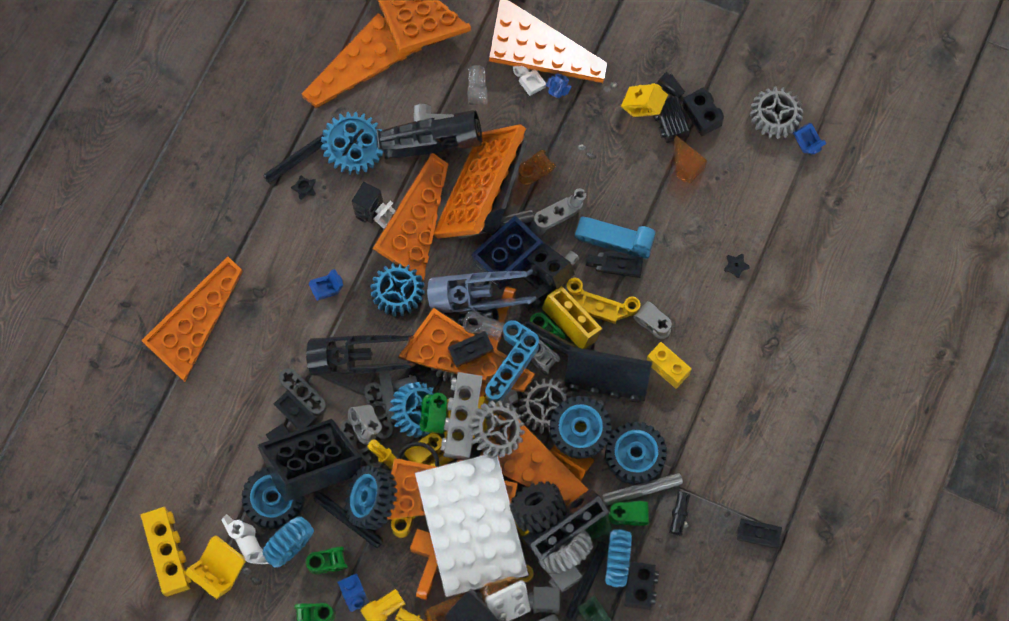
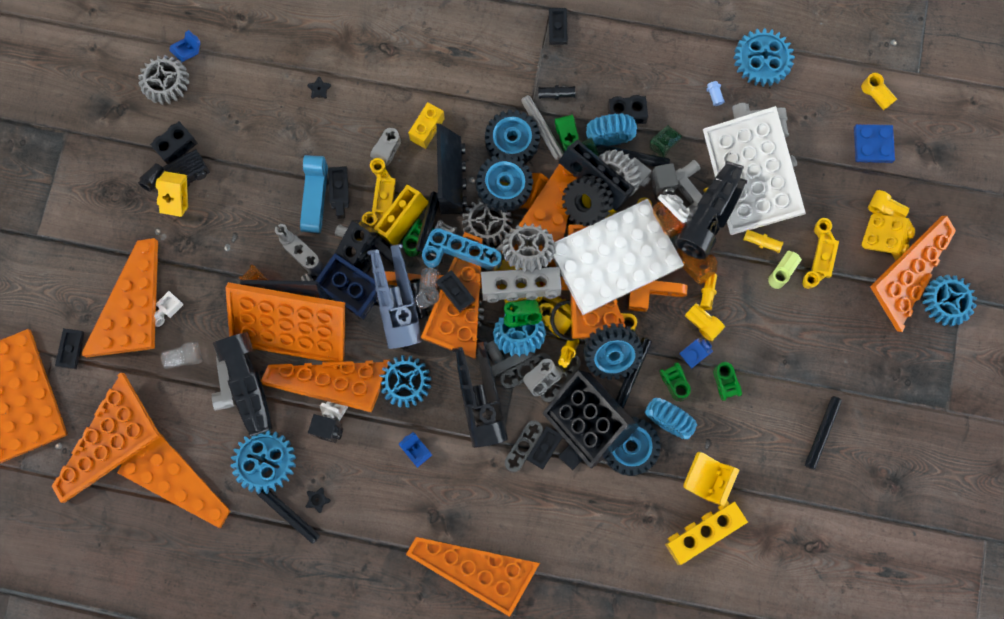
camera: 105 degrees left, 5 degrees up
(246, 540) = (674, 461): white panel -> none
(558, 85) = (169, 278): blue gear -> none
(687, 161) = (225, 148): clear orange slope -> none

